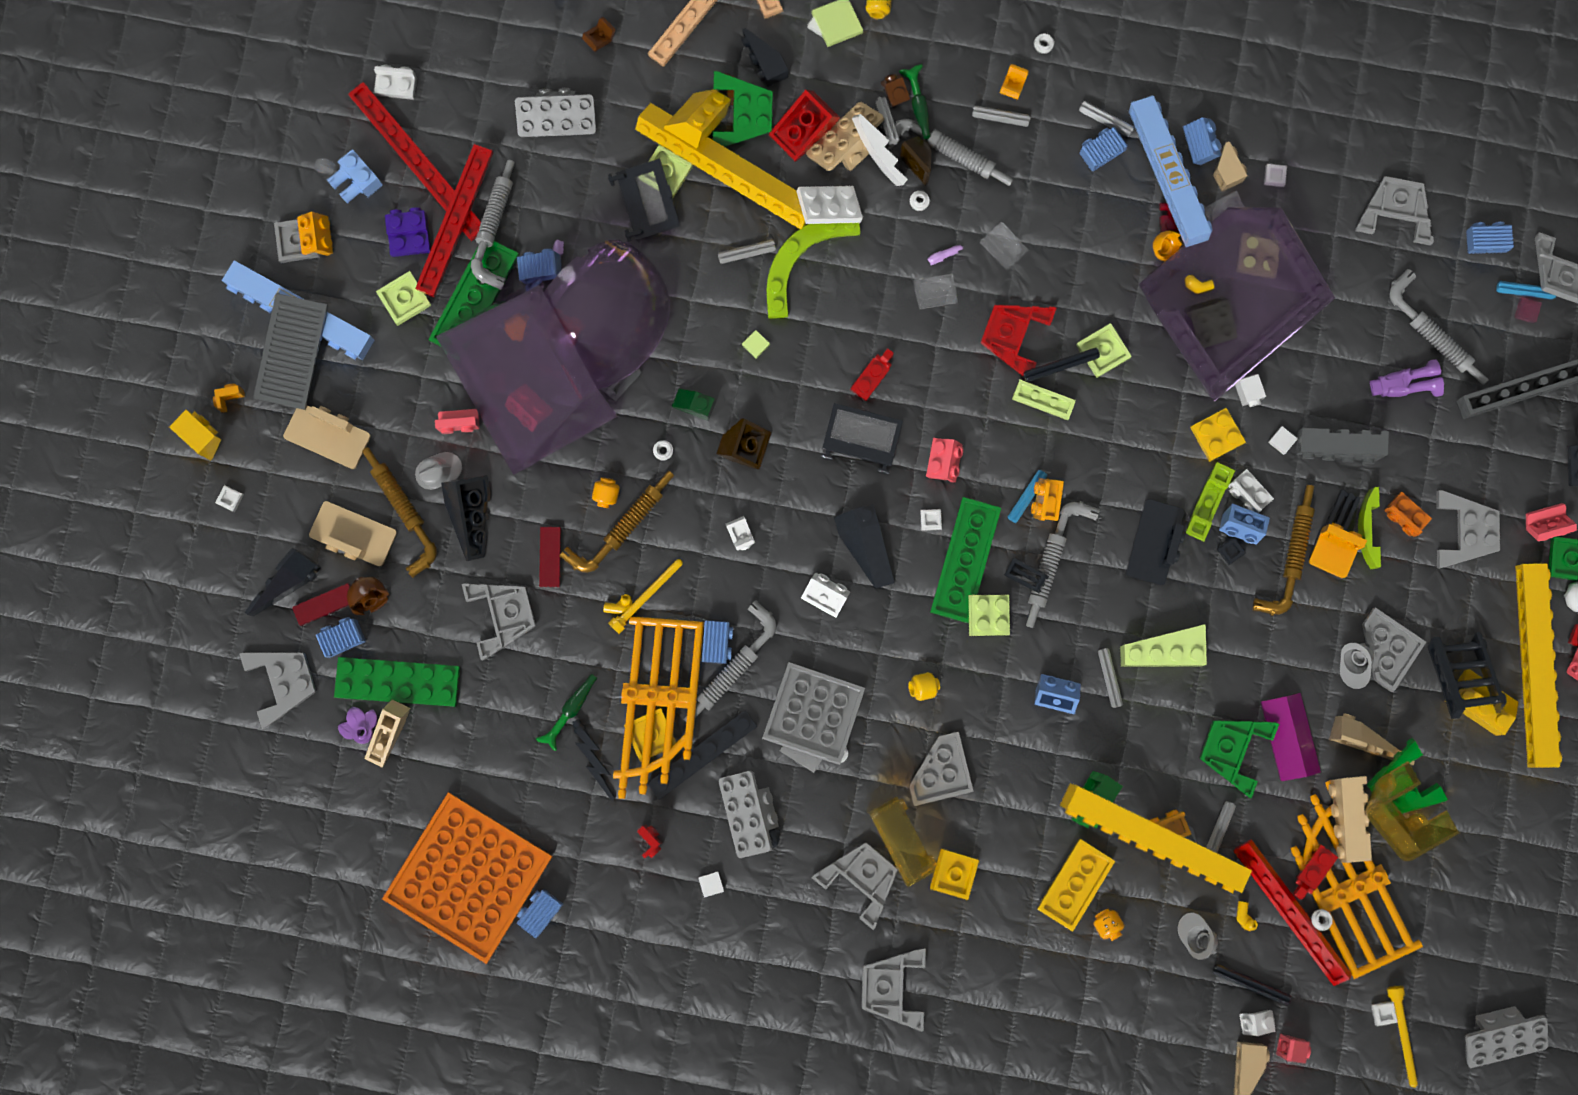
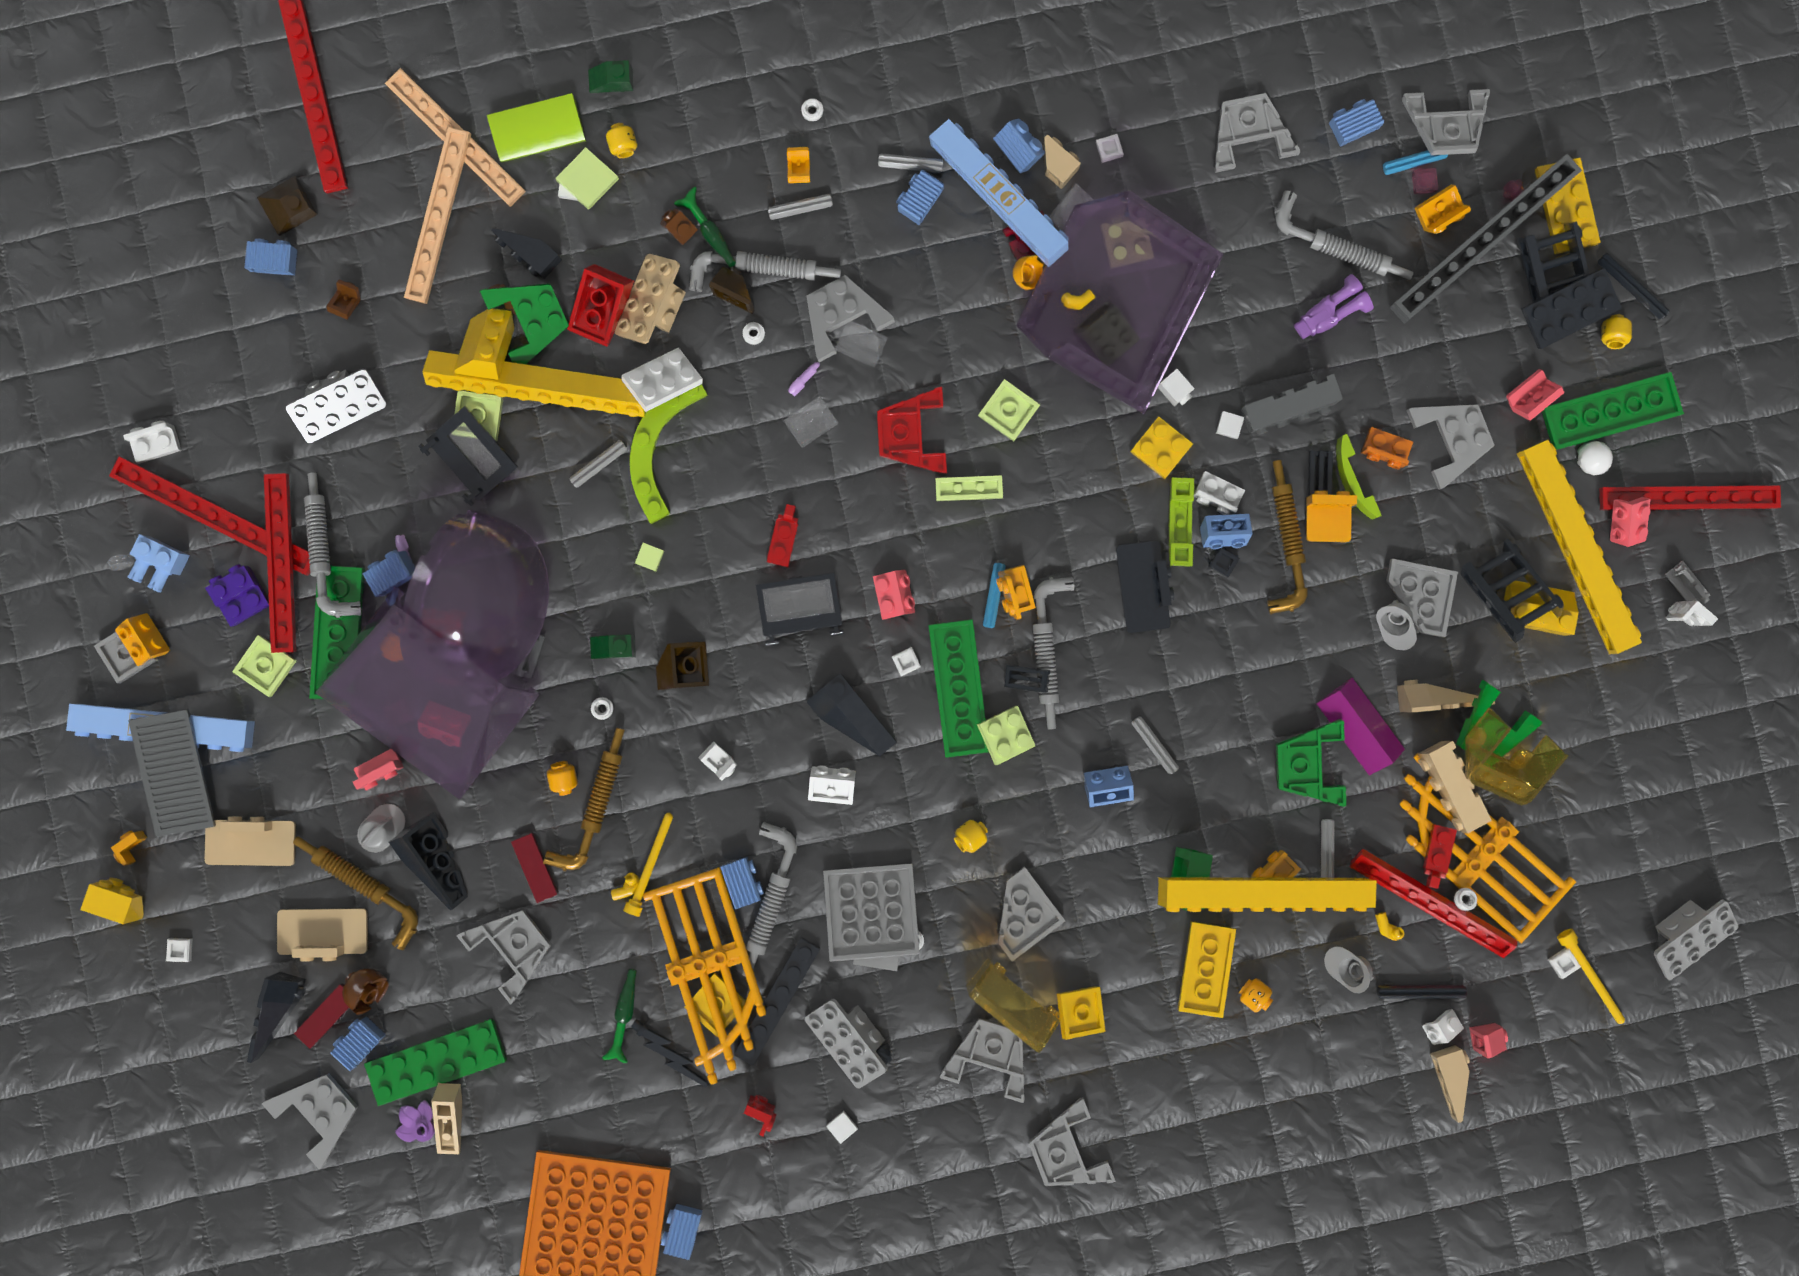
camera: 20 degrees left, 5 degrees up
(875, 144) = (682, 296): white slope -> none
(888, 123) = (685, 264): light grey axle -> none
(998, 207) = (838, 305): none -> light grey wing
(1061, 364) = (971, 445): black axle -> none
(1168, 650) = (1206, 690): yellowish green wedge -> none
(1532, 339) = (1441, 210): none -> light orange bracket

